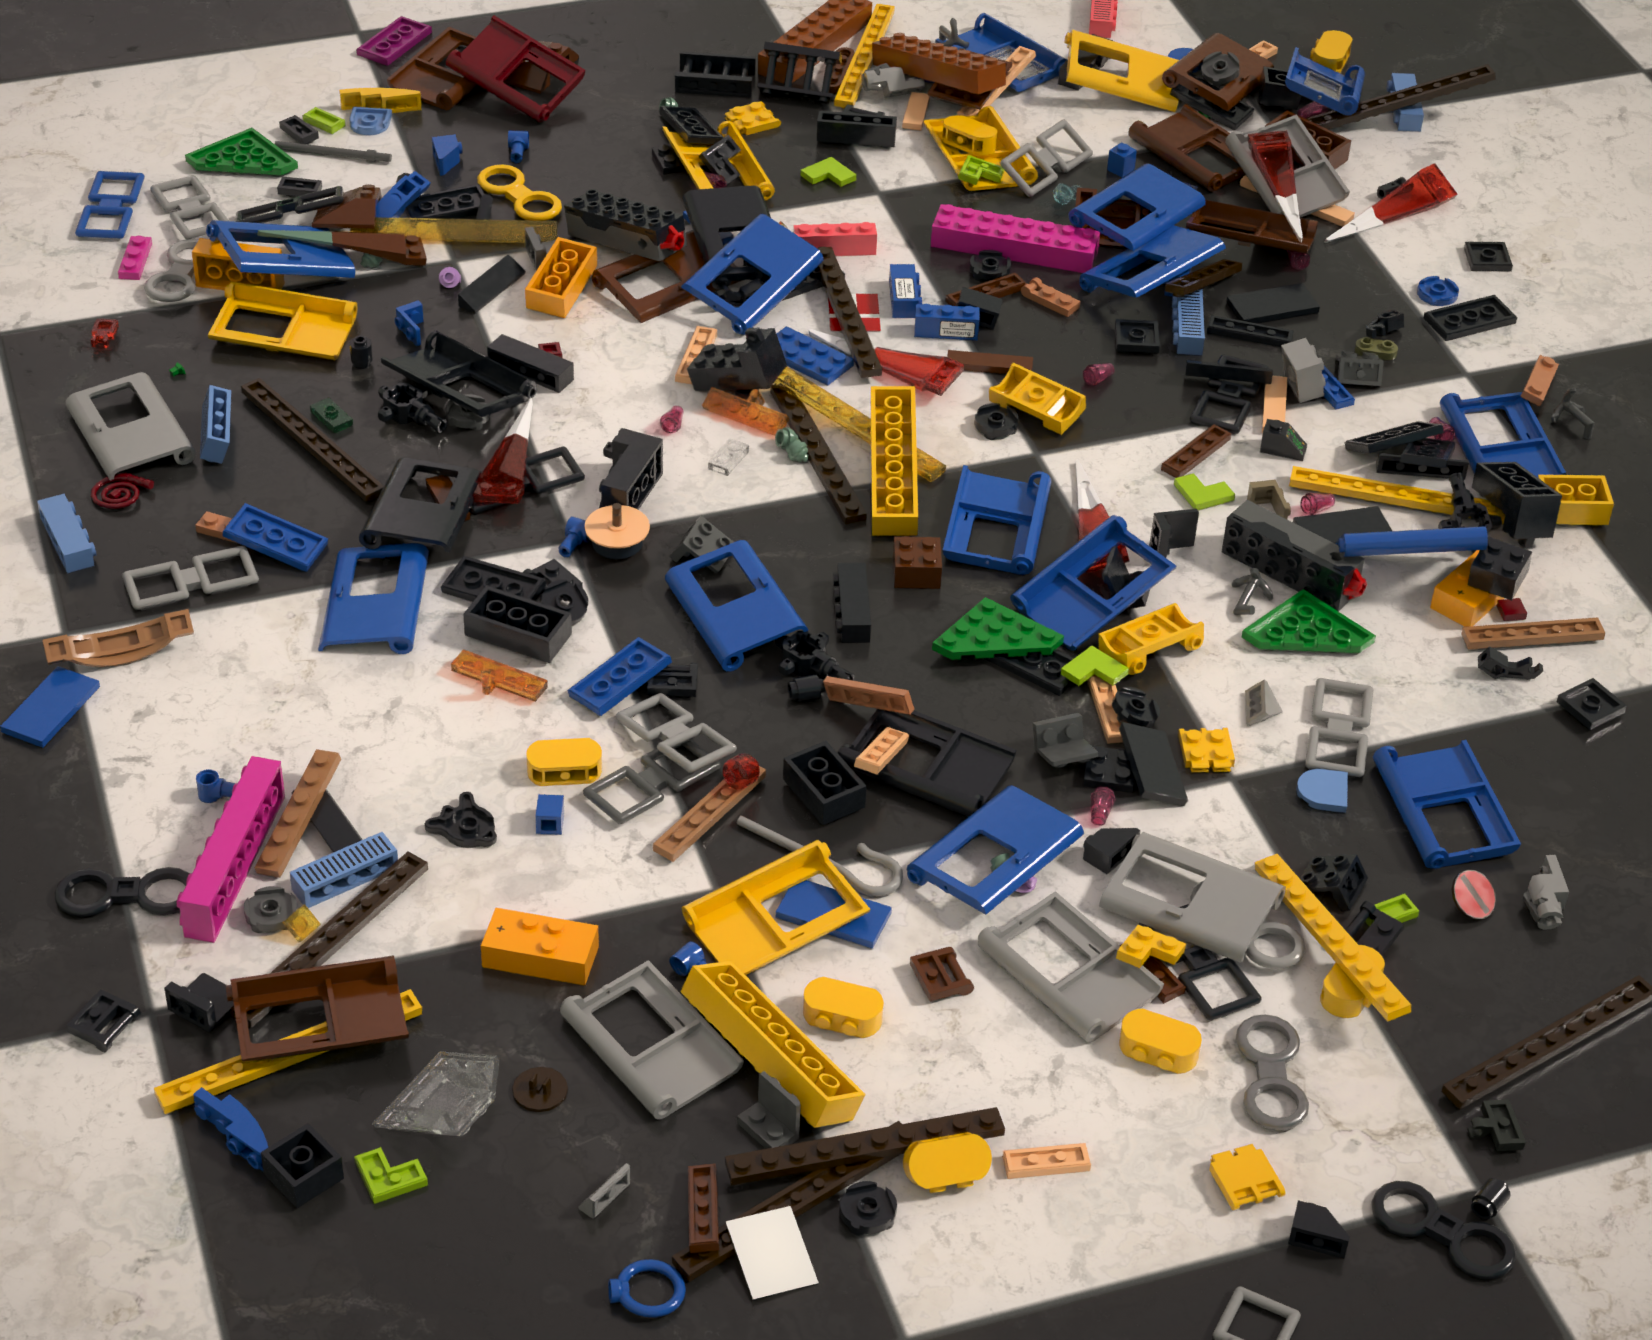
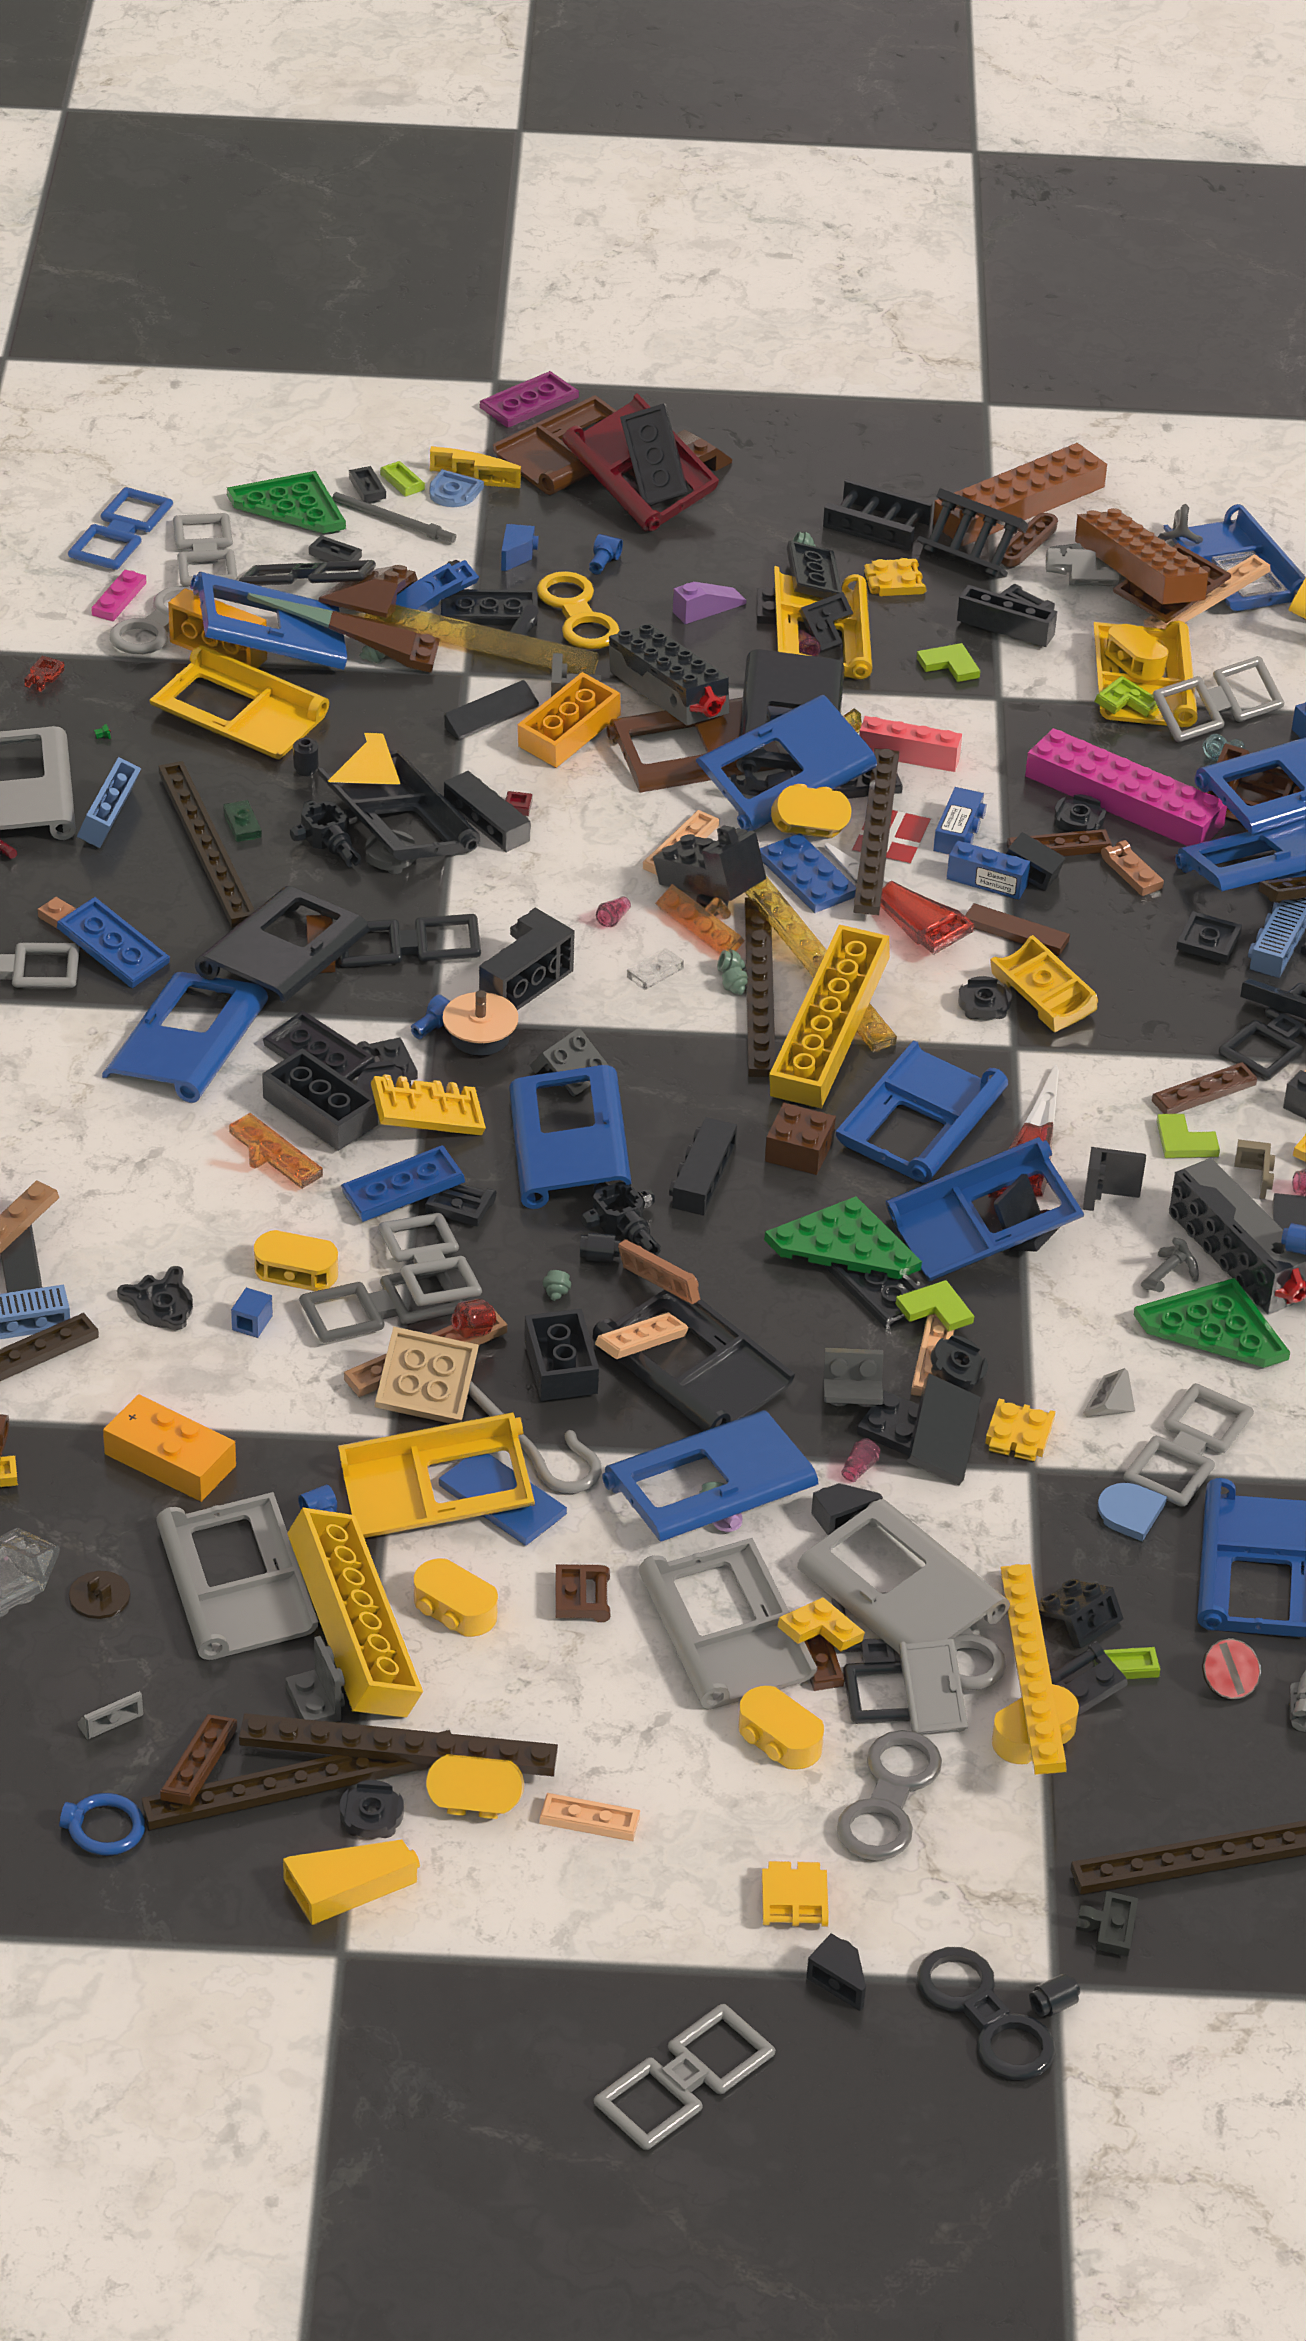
camera: 20 degrees right, 0 degrees up
(407, 318) = (381, 723): blue bracket -> none
(419, 346) = (369, 764): none -> yellow sticker
(449, 277) = (449, 692): lavender plate -> none
(505, 473) = (392, 931): clear red plate -> none
(527, 60) = (654, 455): none -> black tile
(610, 607) = (427, 1105): none -> yellow hinge
(614, 165) = (703, 600): none -> medium lavender slope
(725, 829) = (426, 1375): none -> tan plate
(771, 1252) = (247, 1824): white sticker -> none
(786, 726) = (556, 1284): none -> sand green plate
(790, 306) = (811, 811): none -> yellow brick
(863, 59) = (1064, 531): yellow plate -> none
(880, 1273) = (348, 1877): none -> yellow slope
(916, 111) = (1095, 609): light nougat tile -> none
(1097, 373) = (1136, 970): clear pink cone -> none
(1145, 635) = (1016, 1283): yellow piece -> none
(1253, 966) = (929, 1675): none -> light grey door

